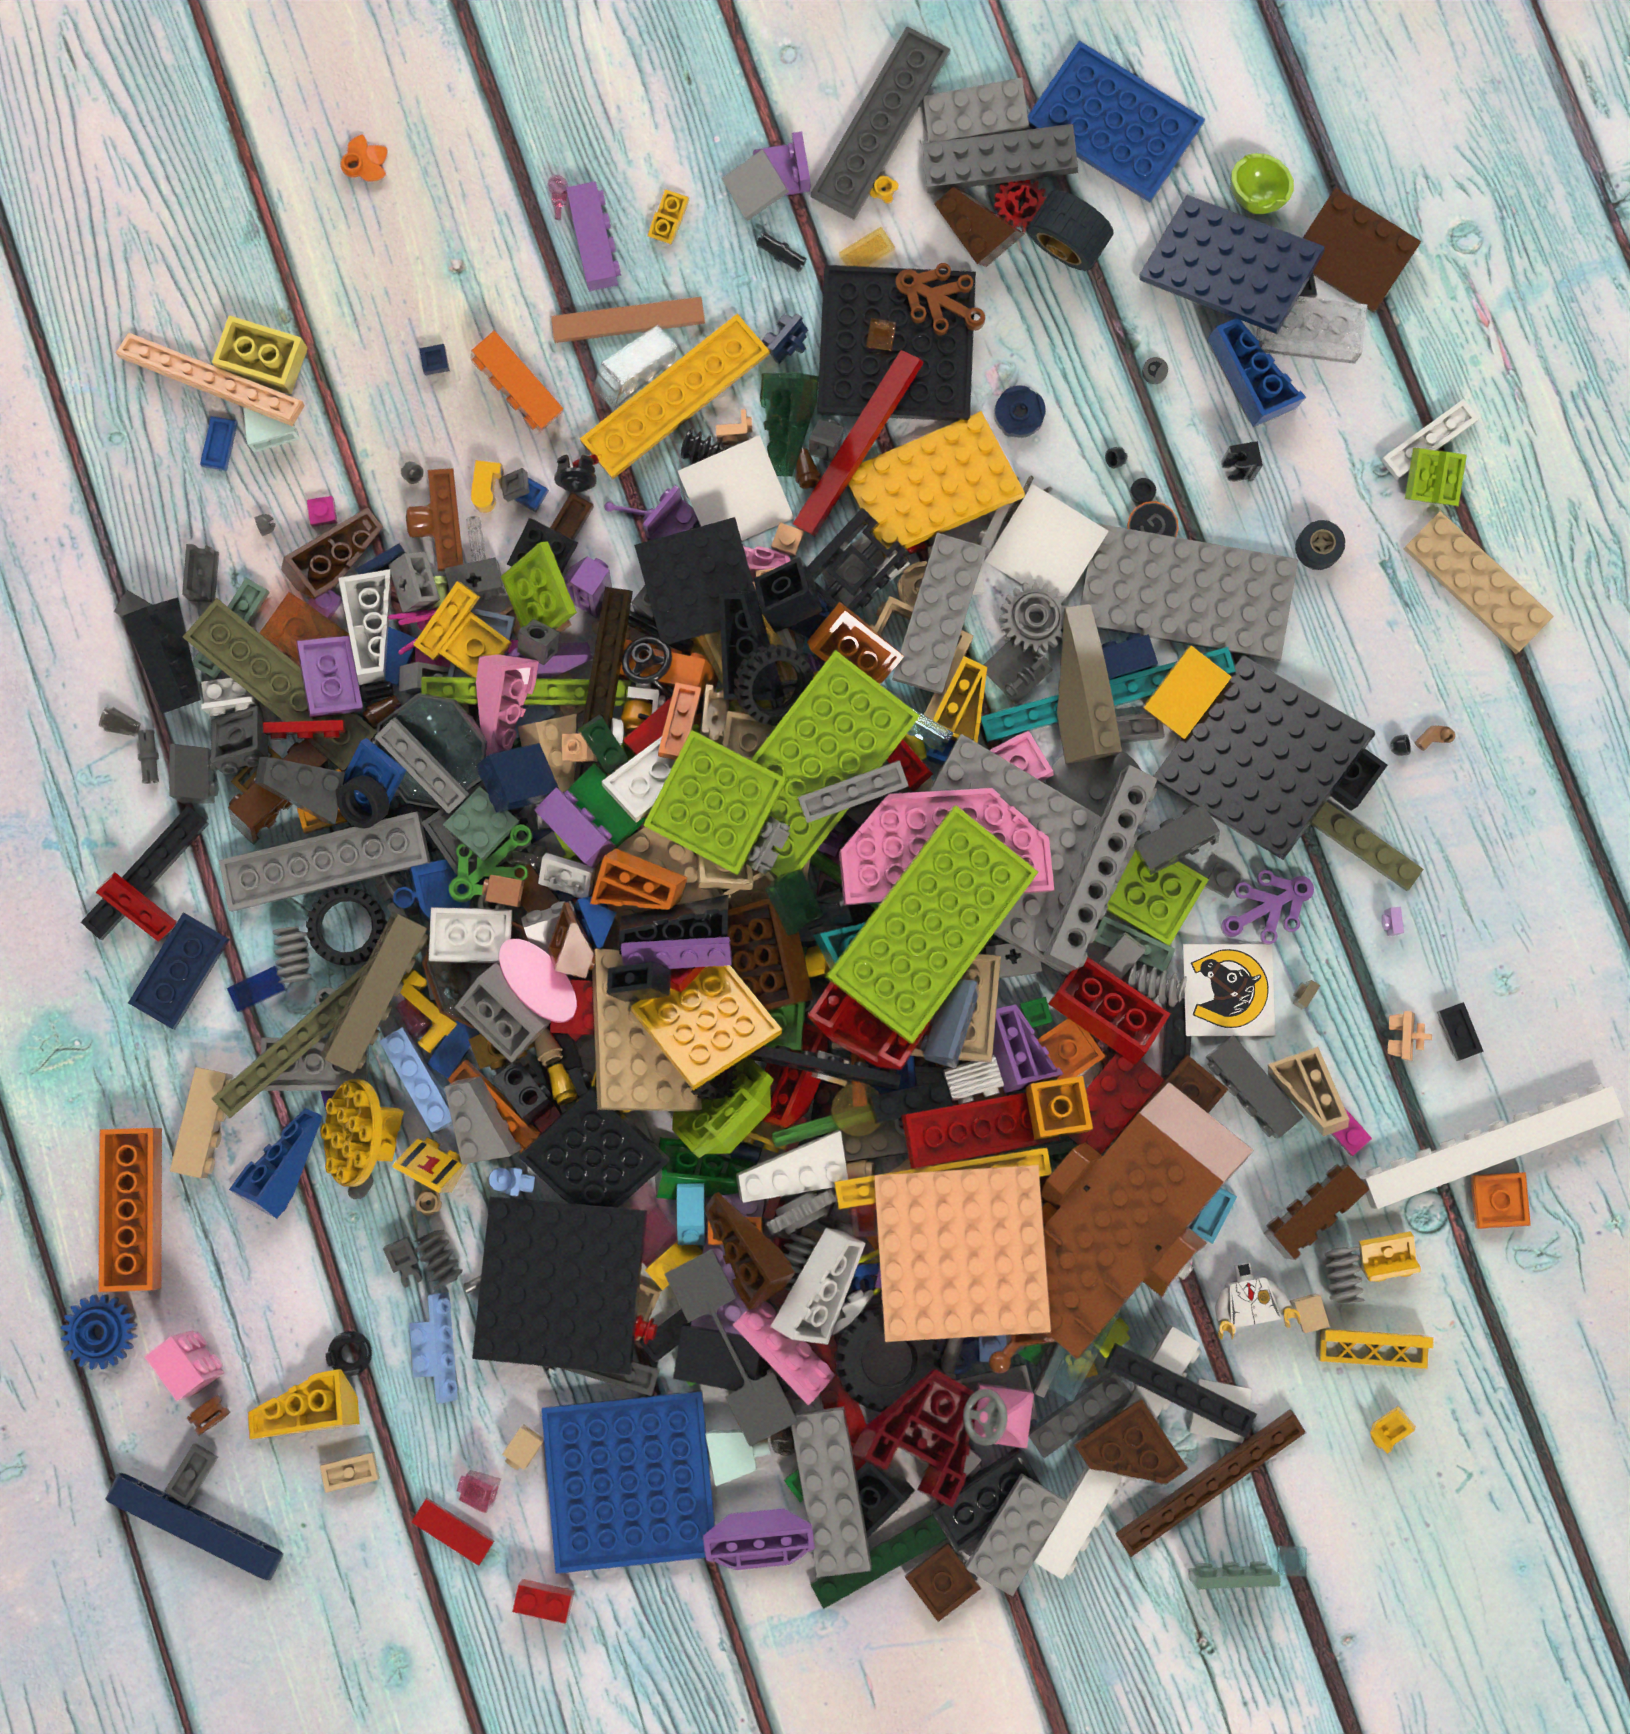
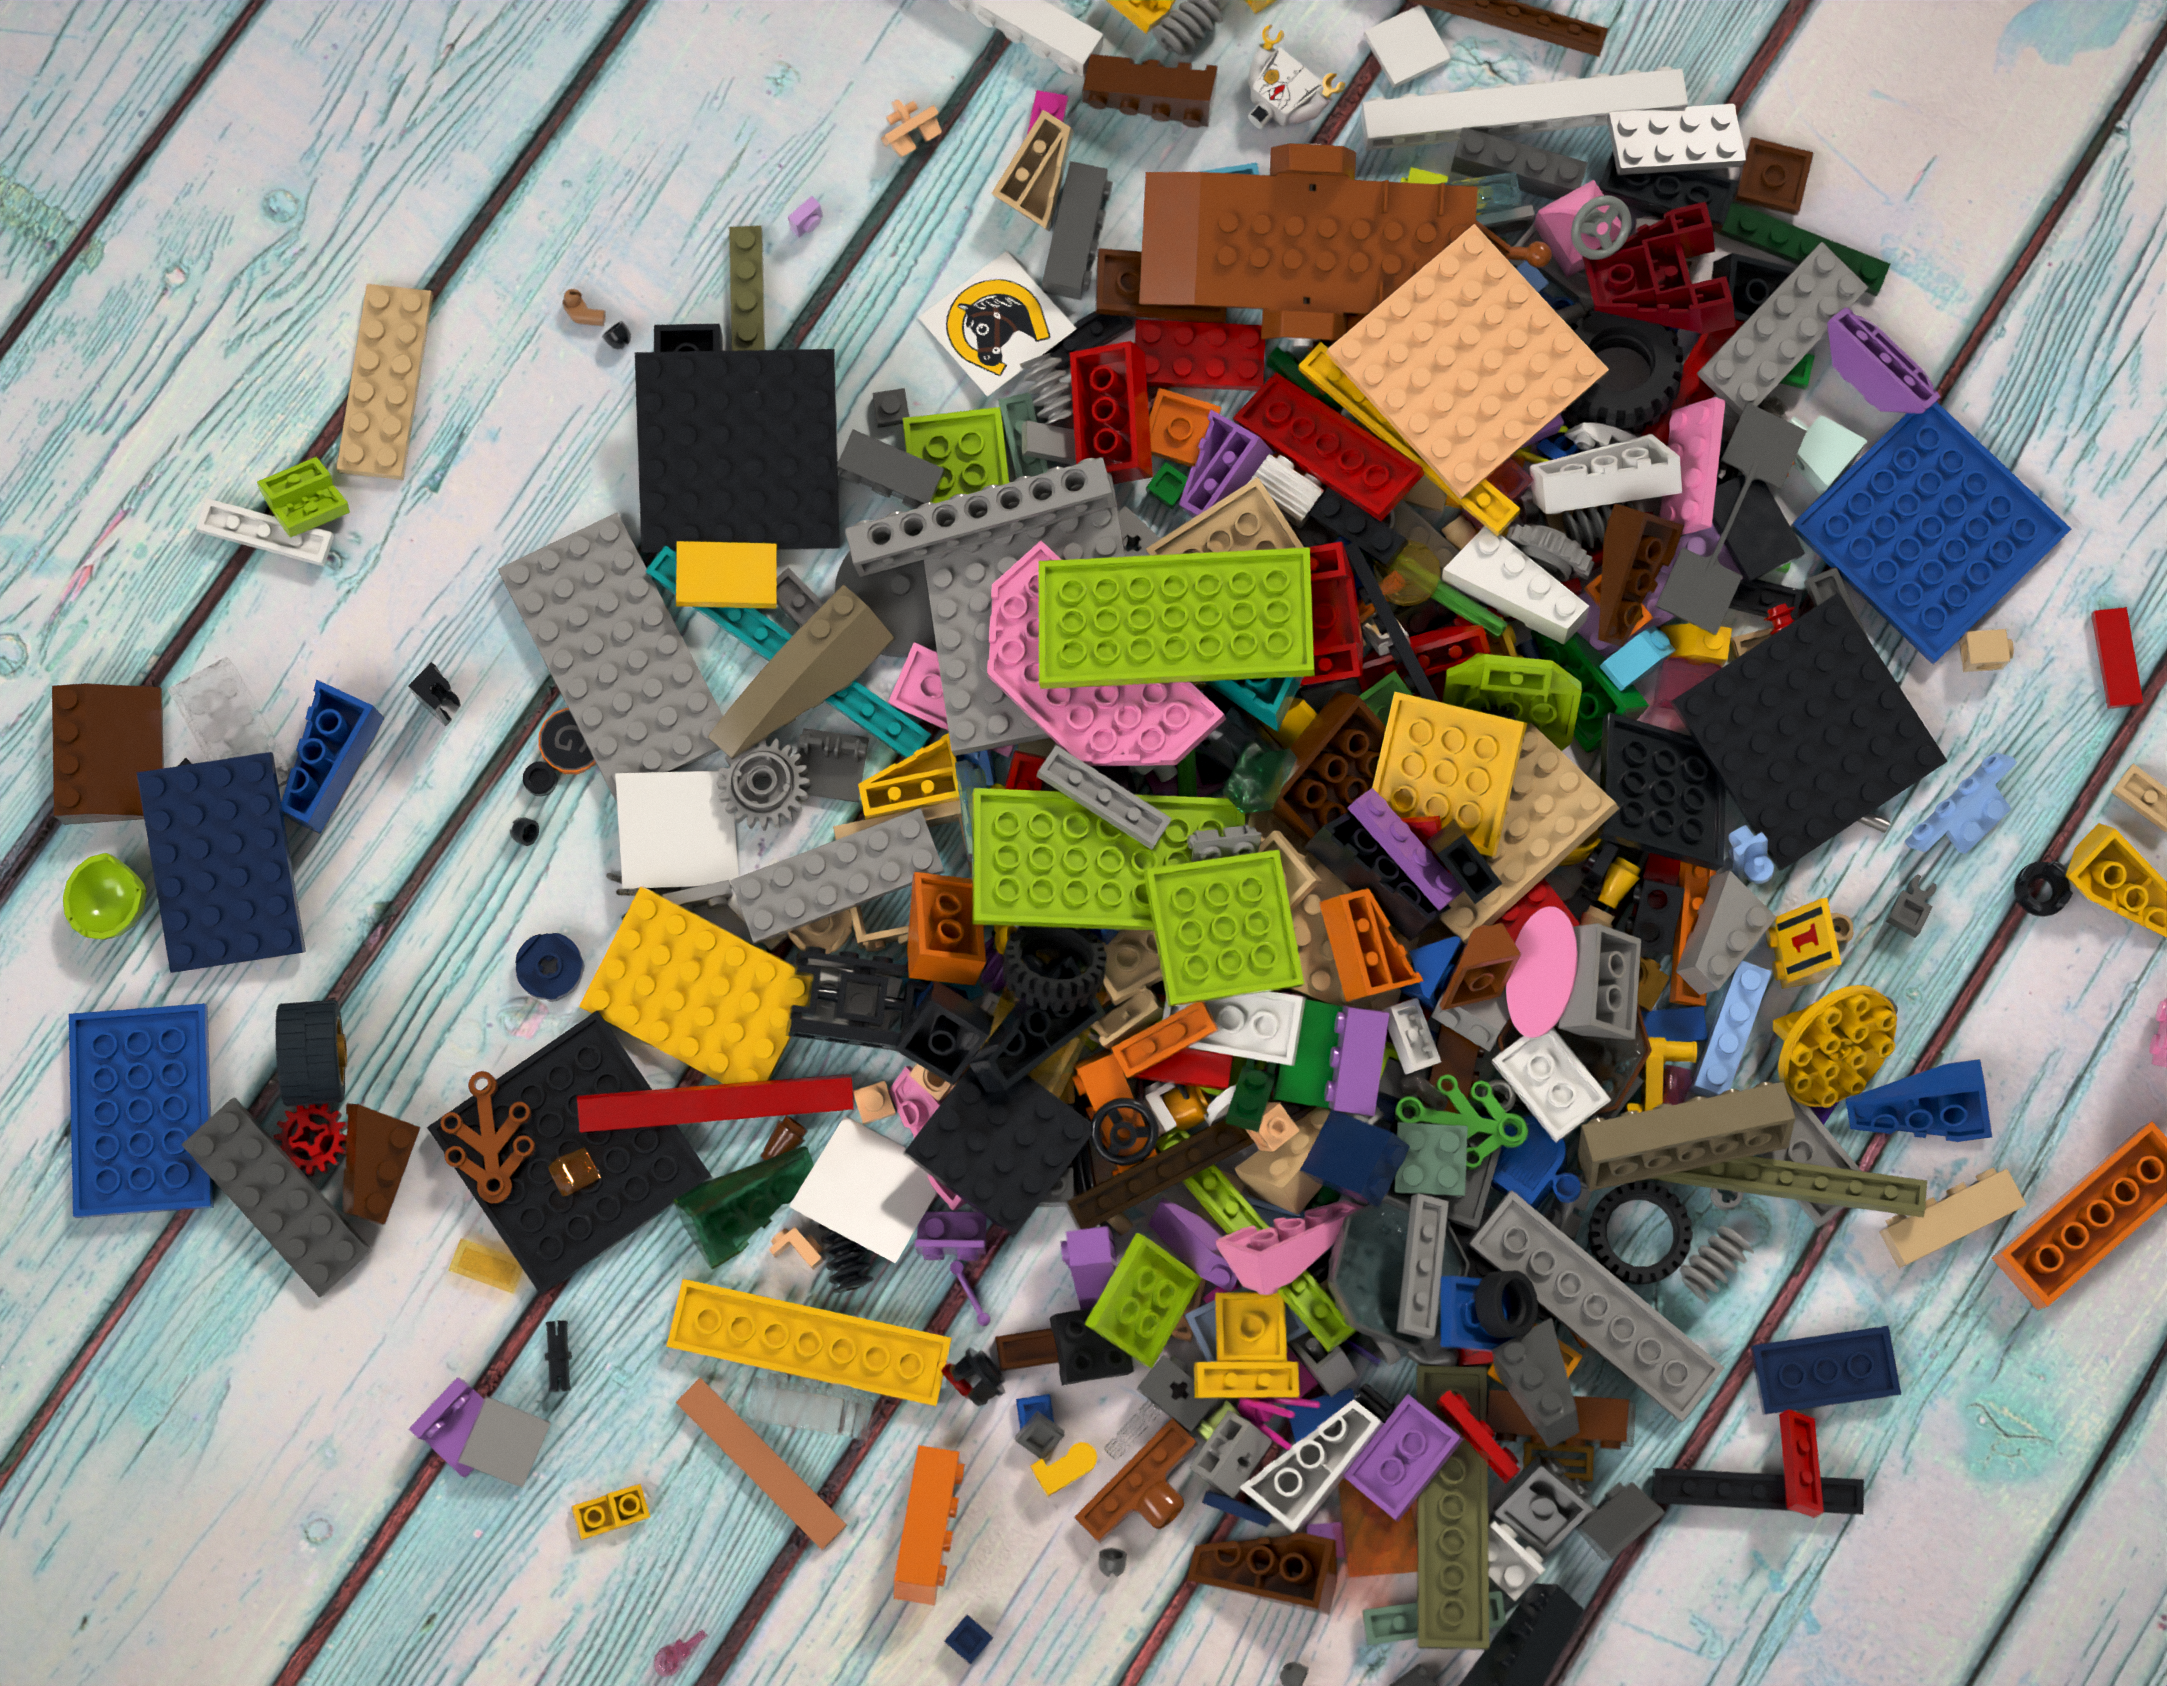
camera: 130 degrees left, 5 degrees down
(117, 722) = (1629, 1654): clear smoke cone -> none
(148, 756) = (1638, 1592): dark grey pin -> none
(256, 989) = (1776, 1276): clear blue tile -> none
(322, 511) = (1230, 1626): dark pink plate -> none
(380, 710) = (1393, 1380): reddish brown cone -> none
(438, 1258) = (1880, 871): dark grey piece -> none
(478, 1490) = (2060, 657): clear pink slope -> none
(503, 890) = (1480, 1081): nougat brick -> none
(538, 641) = (1207, 1255): dark grey brick -> none
(543, 1601) = (2105, 520): red brick -> none
(592, 236) = (696, 1575): medium lavender brick -> none
(788, 340) = (638, 1272): dark blue hips -> none
(825, 439) = (734, 1140): dark grey slope -> none
(880, 123) = (327, 1362): dark grey plate -> none
(884, 182) = (393, 1296): yellow plate -> none
(951, 1024) = (1267, 528): sand blue slope -> none
(976, 111) = (239, 1265): light grey plate -> none
(1058, 1108) = (1249, 386): light orange brick -> none
(1129, 656) = (730, 659): dark blue brick -> none
(1132, 1447) = (1511, 91): reddish brown plate -> none
(1155, 370) = (396, 862): dark grey tile -> none
(1179, 1390) = (1423, 86): black plate -> none
(1271, 904) = (880, 343): medium lavender plant -> none
(1305, 993) = (944, 247): dark tan plate -> none
(1311, 1312) = (1247, 28): tan panel -> none
(1324, 536) = (467, 547): black wheel -> none
(1460, 1031) = (866, 82): black plate -> none

